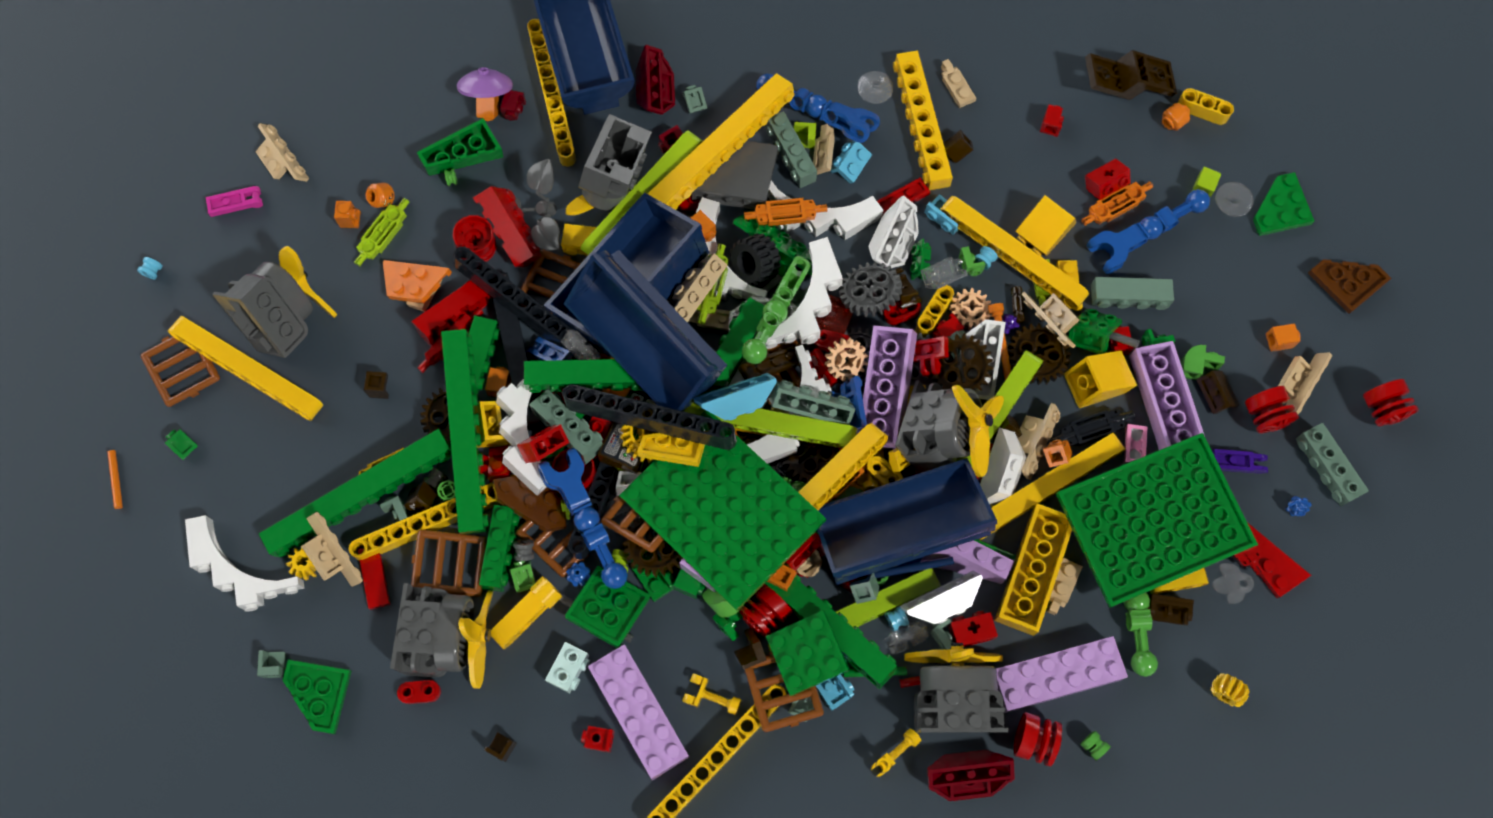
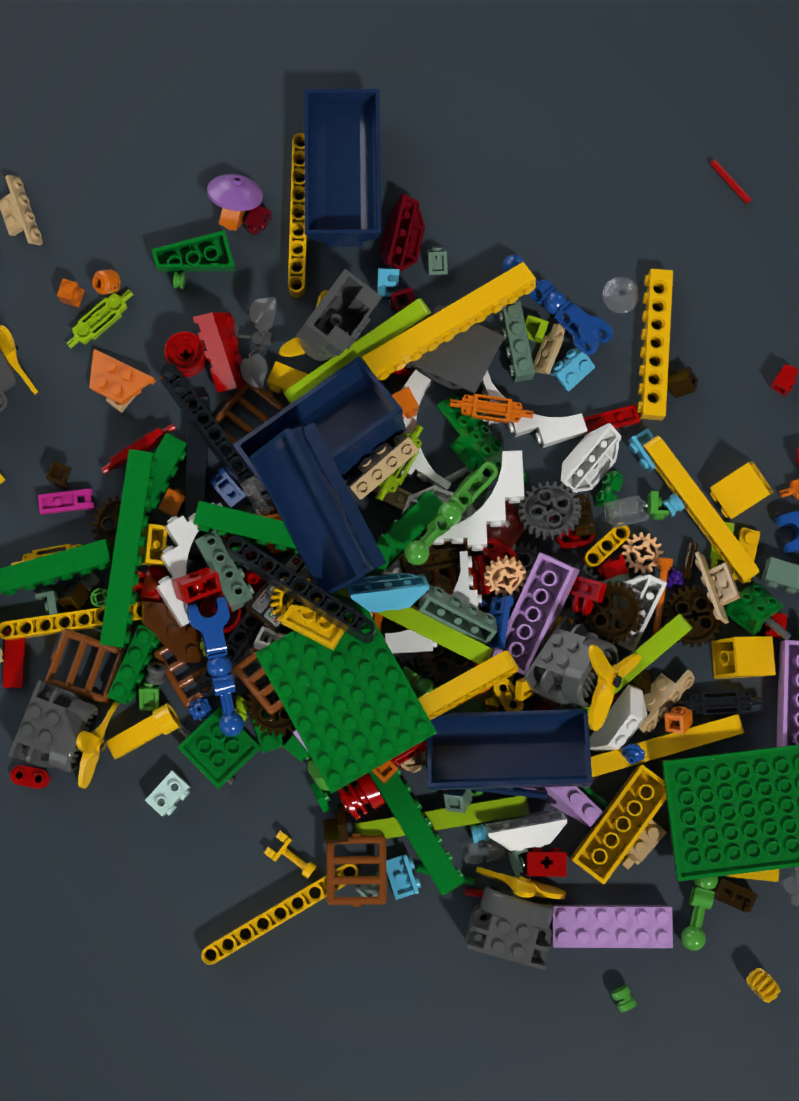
camera: 10 degrees right, 10 degrees up
(389, 409) = (65, 501): none -> dark pink plate
(449, 310) = (146, 420): red wedge -> none
(501, 747) = (90, 848): dark brown panel -> none
(605, 742) = (186, 865): red brick -> none
(638, 712) = (221, 852): lavender brick -> none
(653, 122) = (386, 279): none -> medium azure hinge
(755, 259) = (448, 449): black tyre -> none
(807, 653) = (386, 846): green plate -> none
(887, 760) = (430, 960): yellow bar -> none
(956, 84) = (702, 315): tan hinge -> none
(970, 774) = (502, 992): dark red wedge -> none
(1025, 495) = (633, 753): none -> blue plant
(1042, 740) = (574, 981): red wheel -> none
(1135, 442) = (755, 730): bright pink piece -> none

